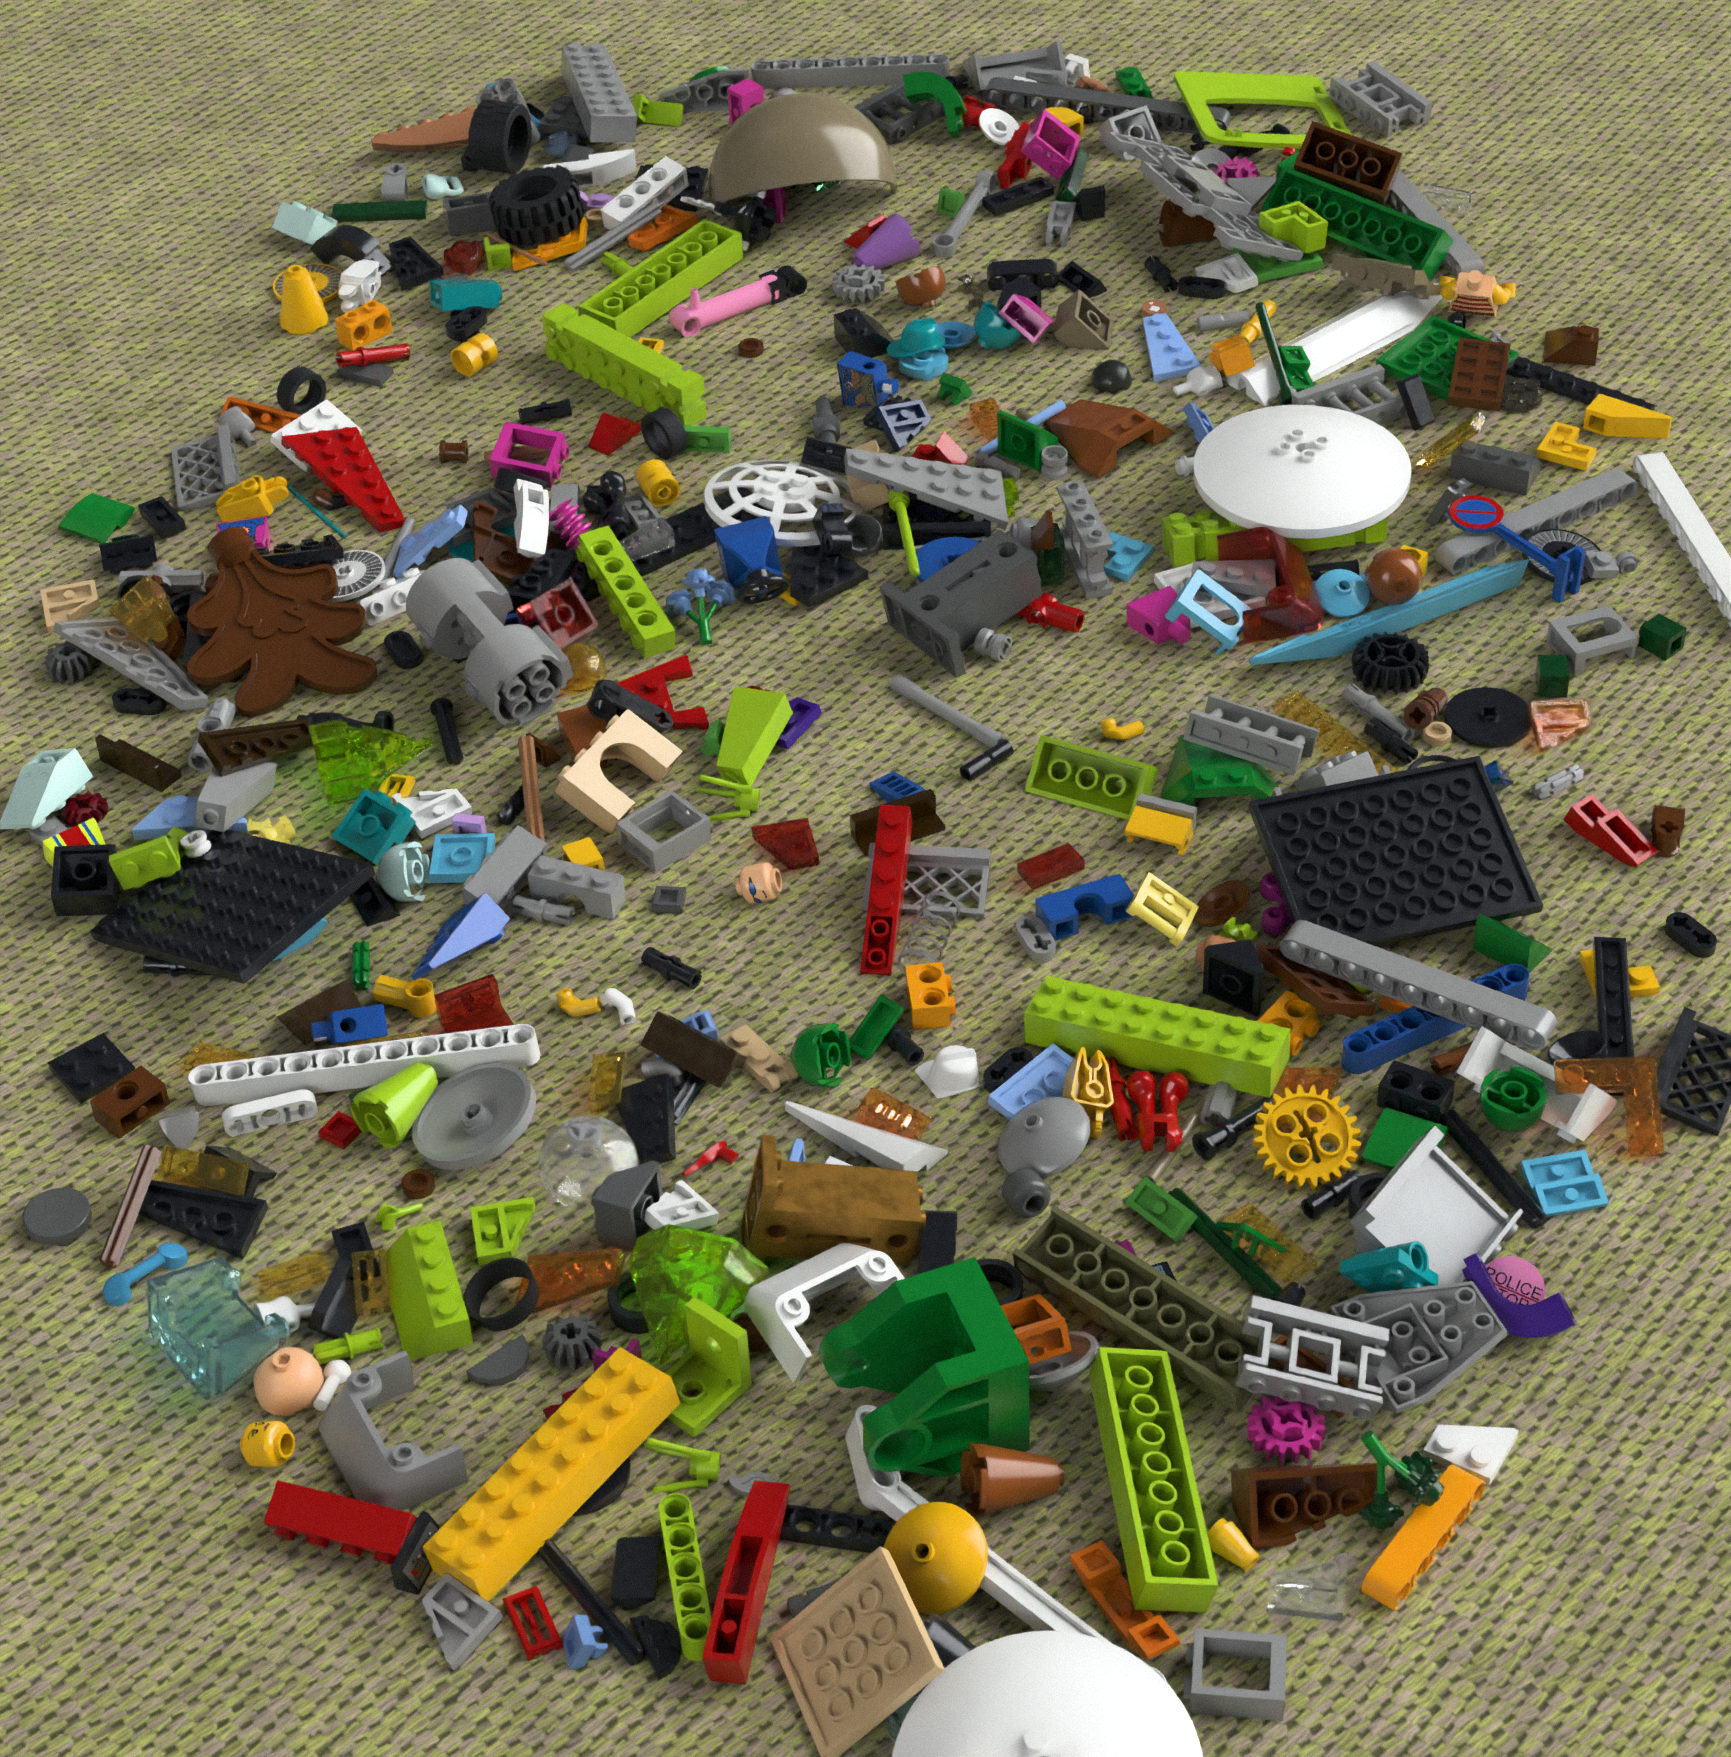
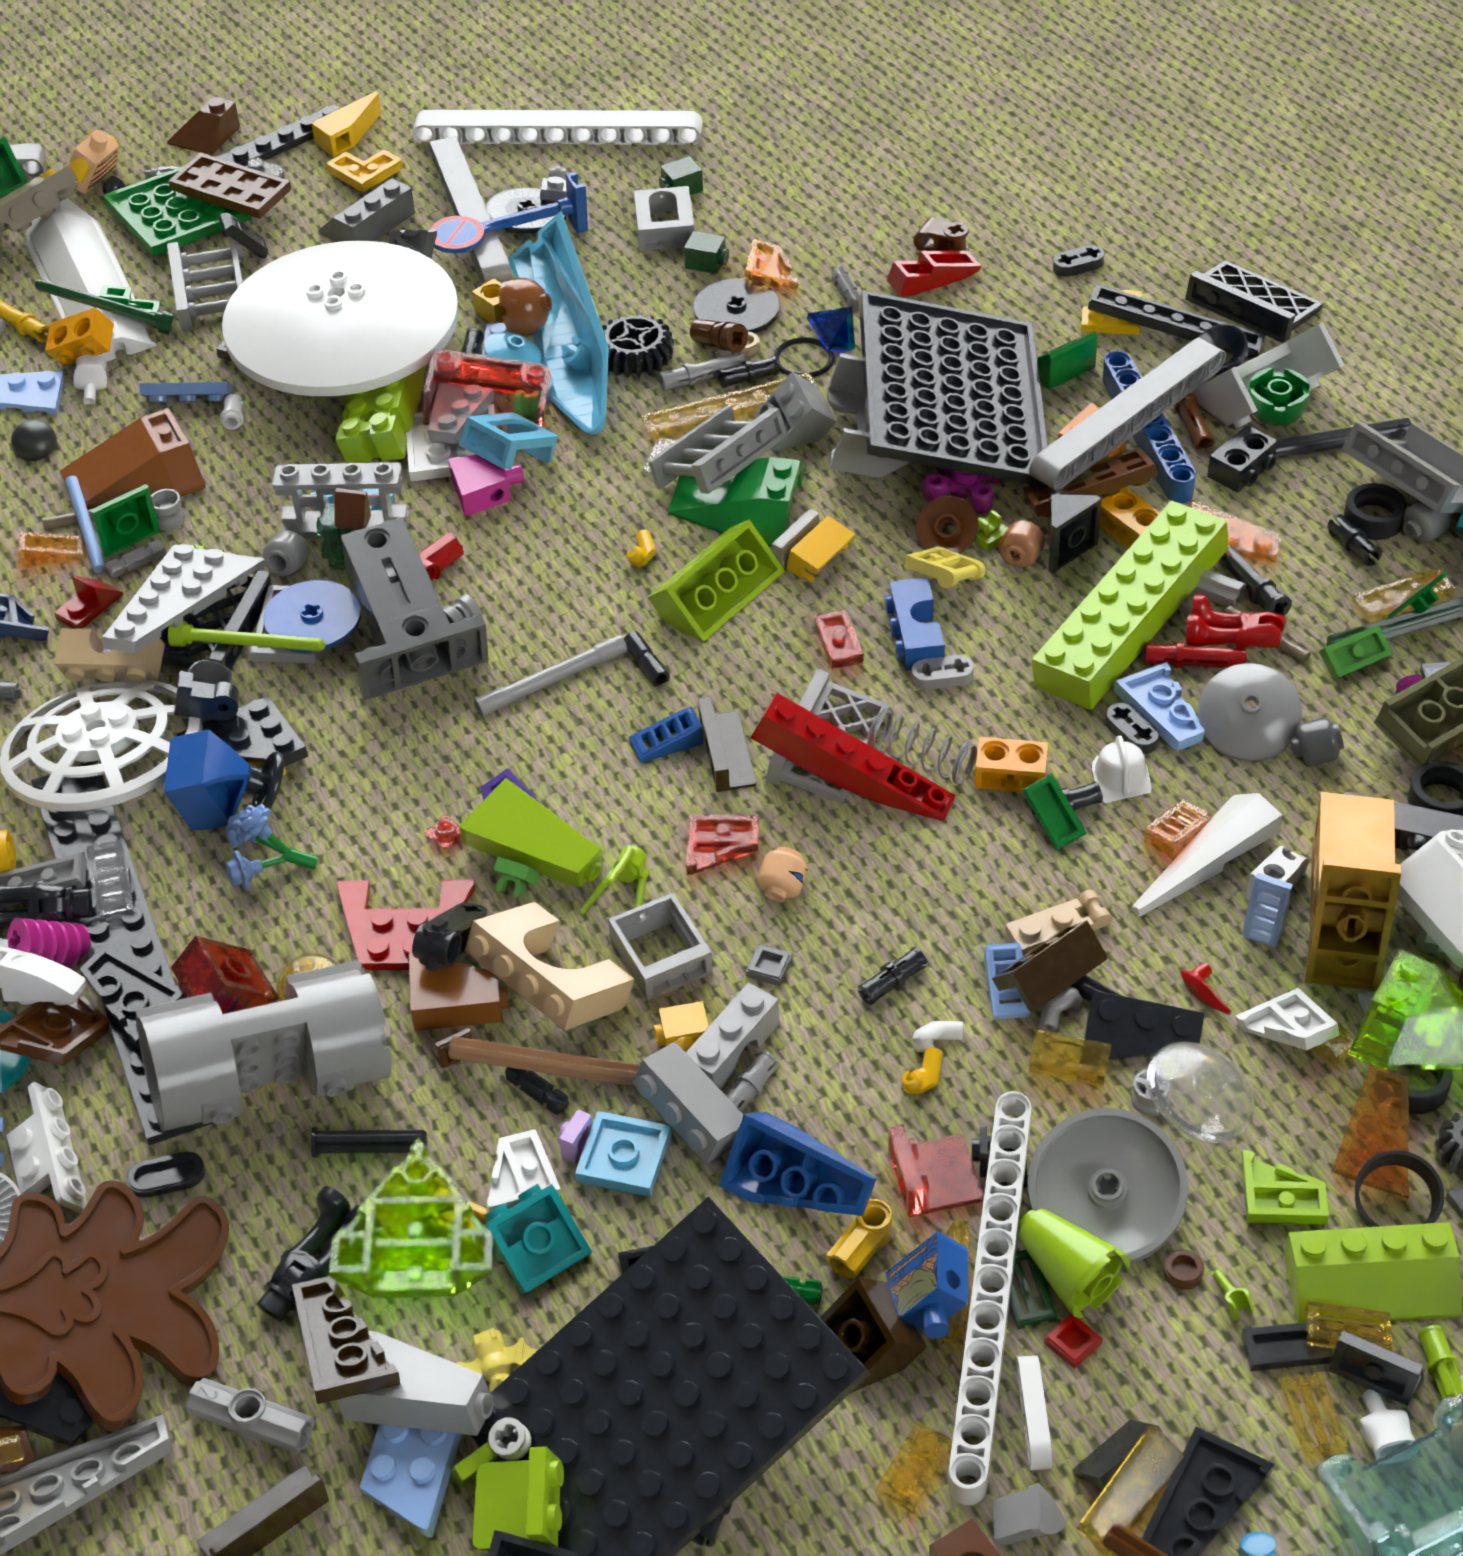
camera: 75 degrees left, 5 degrees up
(138, 702) = (123, 1514): black beam -> none
(400, 868) = (642, 1212): light aqua cylinder -> none
(623, 1202) = (1293, 1054): dark grey slope -> none
(625, 592) = (199, 910): lime brick -> none
(821, 1048) = (1085, 863): green cylinder -> none
(824, 454) = (32, 690): black hips -> none
(1090, 1087) = (1186, 663): yellow hinge -> none
(1333, 1129) = (1293, 533): yellow gear -> none
(1394, 1136) = (1299, 481): green slope -> none
(1451, 440) = (336, 213): clear yellow tile -> none
(1564, 1183) = (1367, 402): medium azure slope -> none
(1639, 1085) = (1280, 322): clear orange plate -> none

